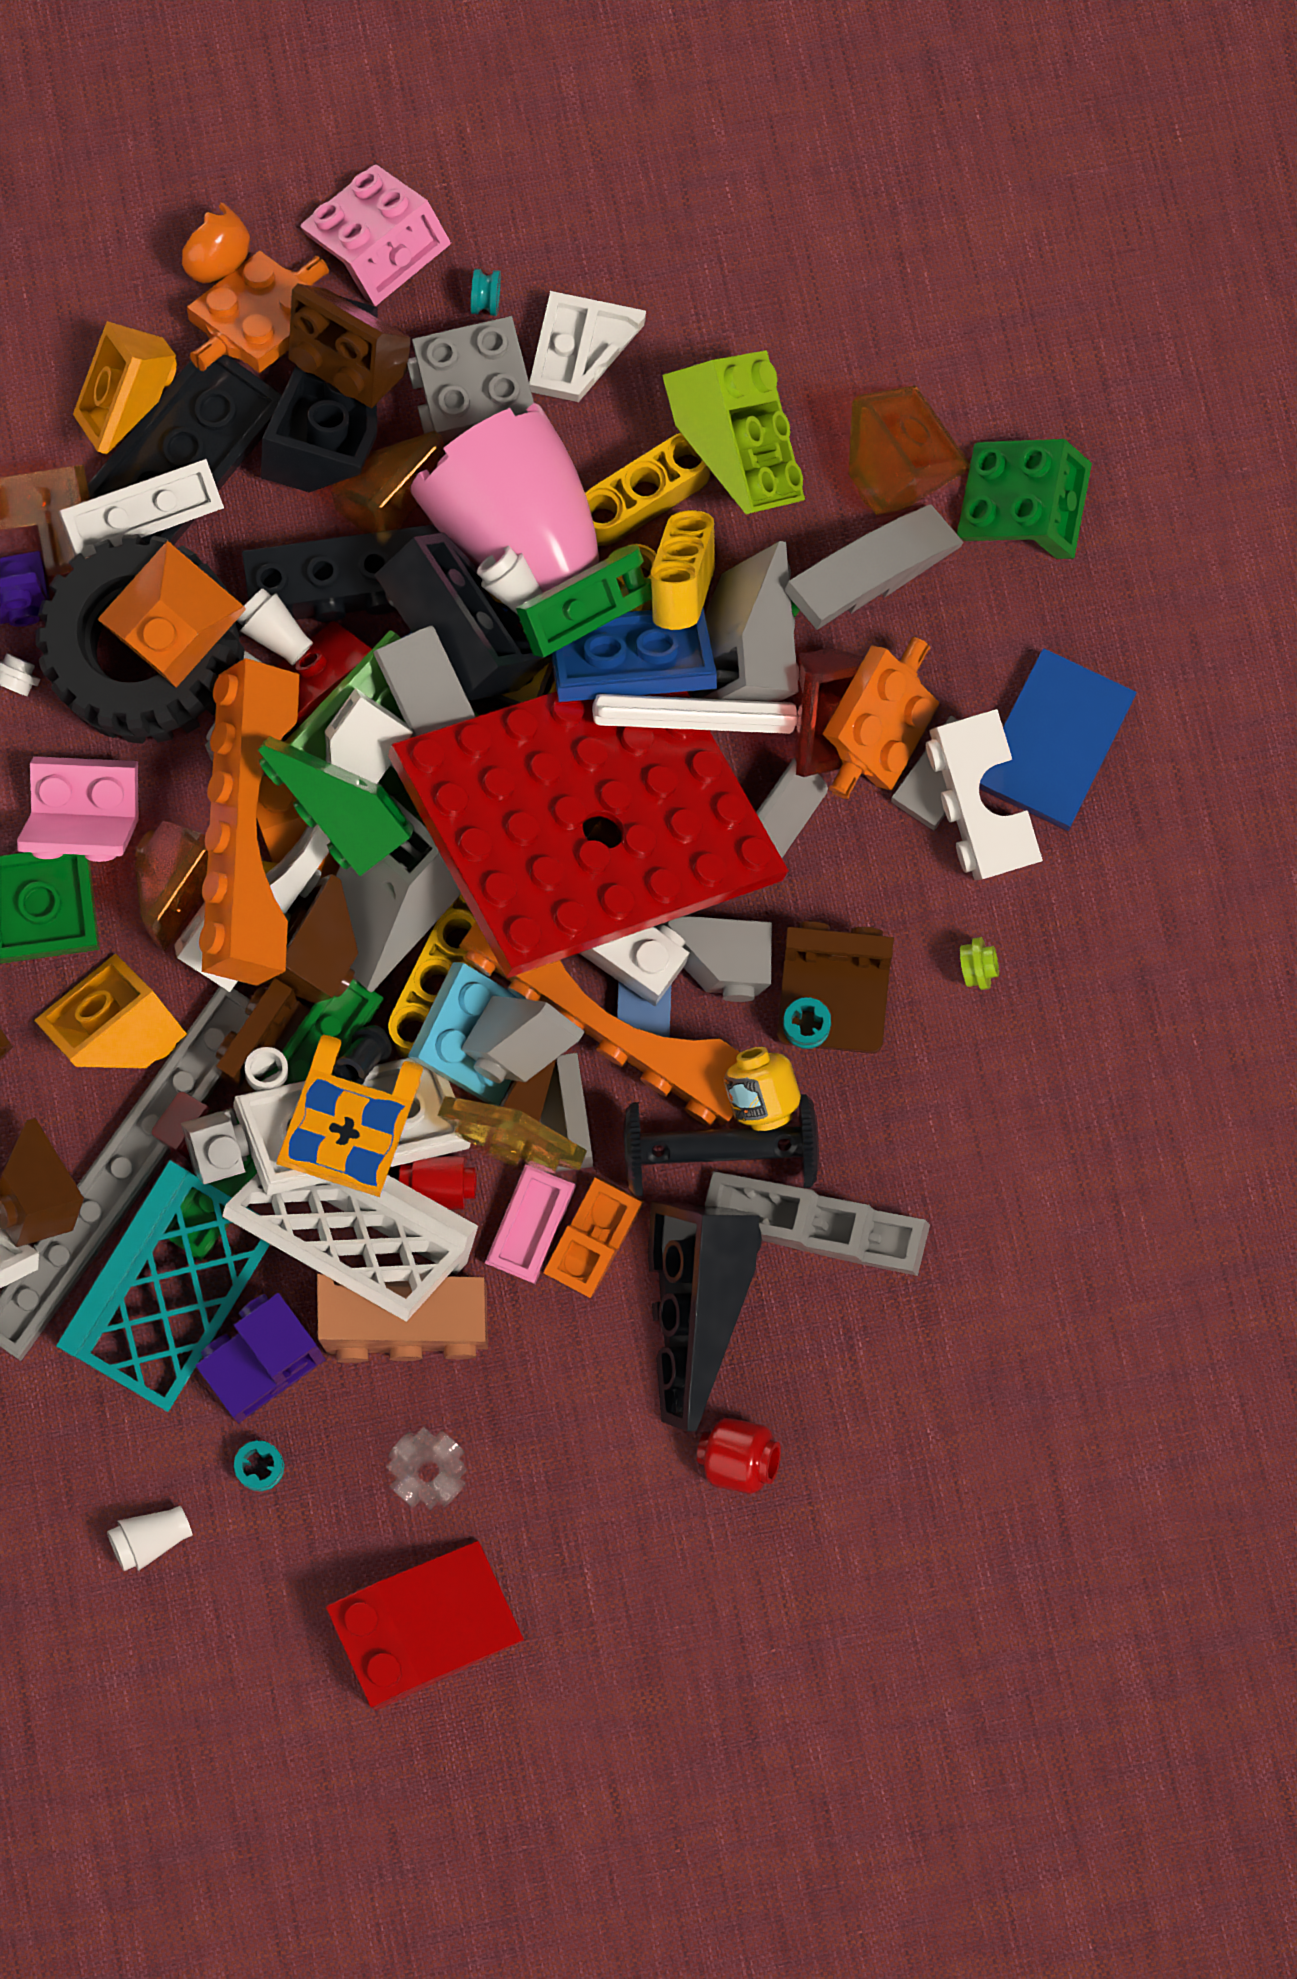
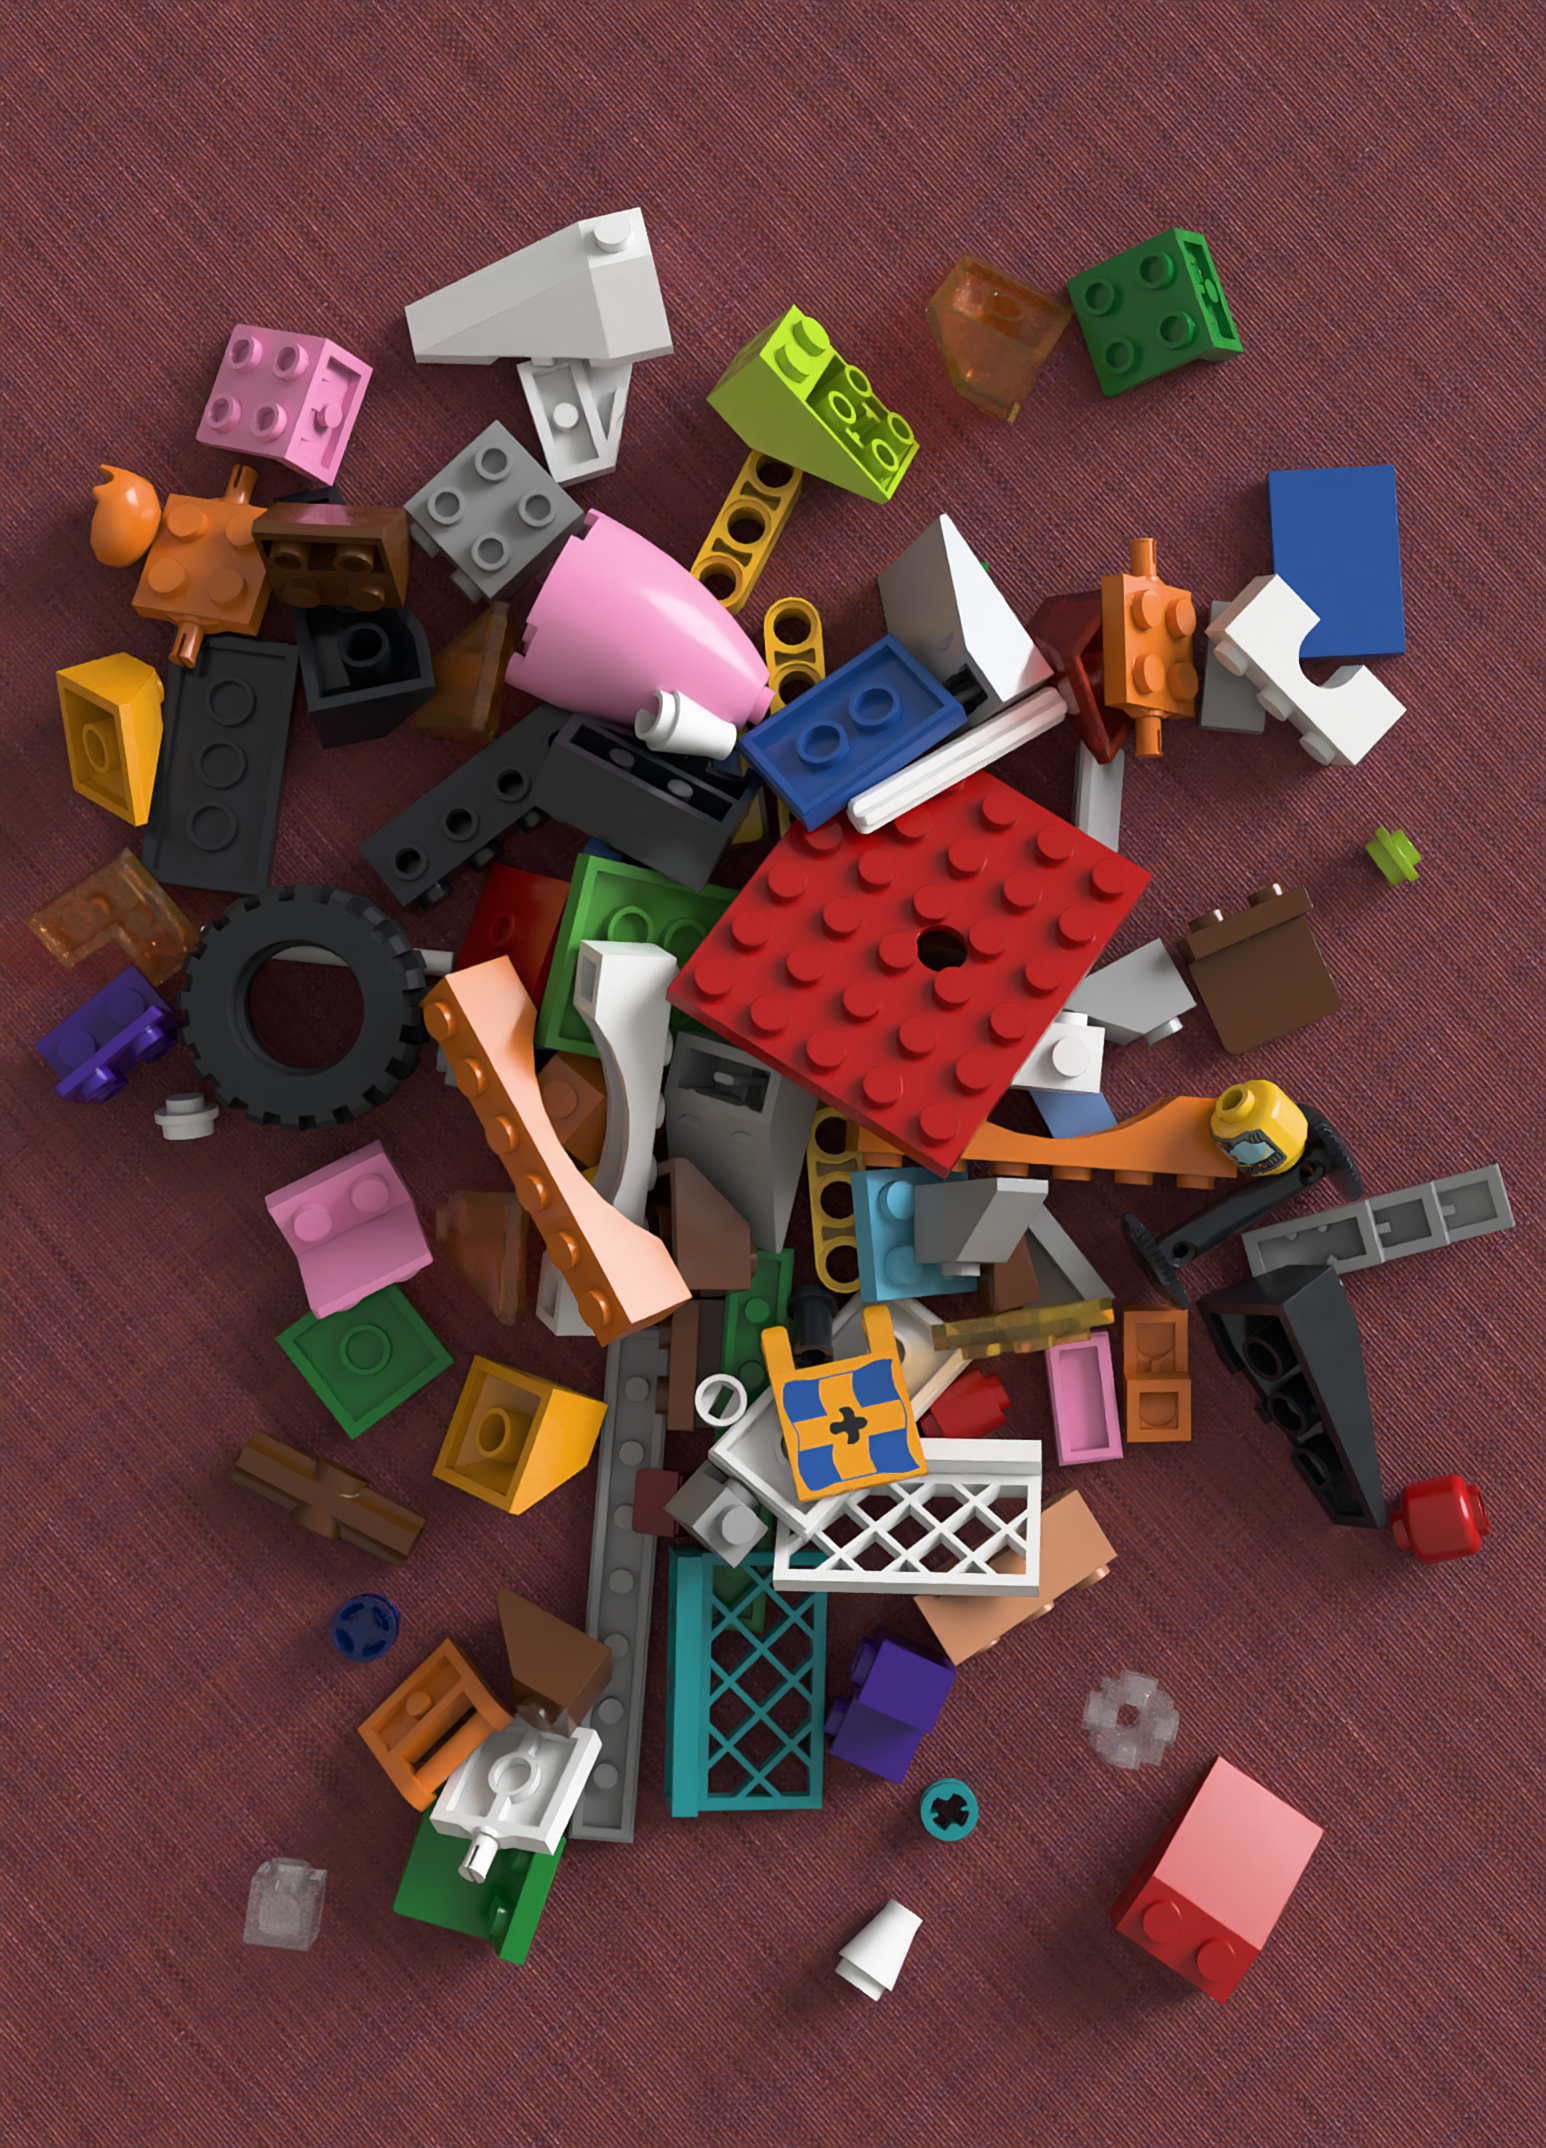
camera: 30 degrees left, 10 degrees up
(142, 508) = (221, 862): white plate -> none
(171, 614) = (331, 971): orange slope -> none
(274, 627) = (442, 914): white cone -> none
(348, 808) = (653, 1081): green slope -> none
(423, 682) = (655, 895): light grey slope -> none
(485, 292) = (445, 404): teal bush -> none
(585, 602) = (773, 703): green plate -> none
(616, 263) = (565, 296): none -> white wedge
(683, 570) = (848, 604): yellow beam -> none
(821, 1015) = (1247, 1041): teal bush -> none
(872, 565) = (1045, 485): light grey slope -> none

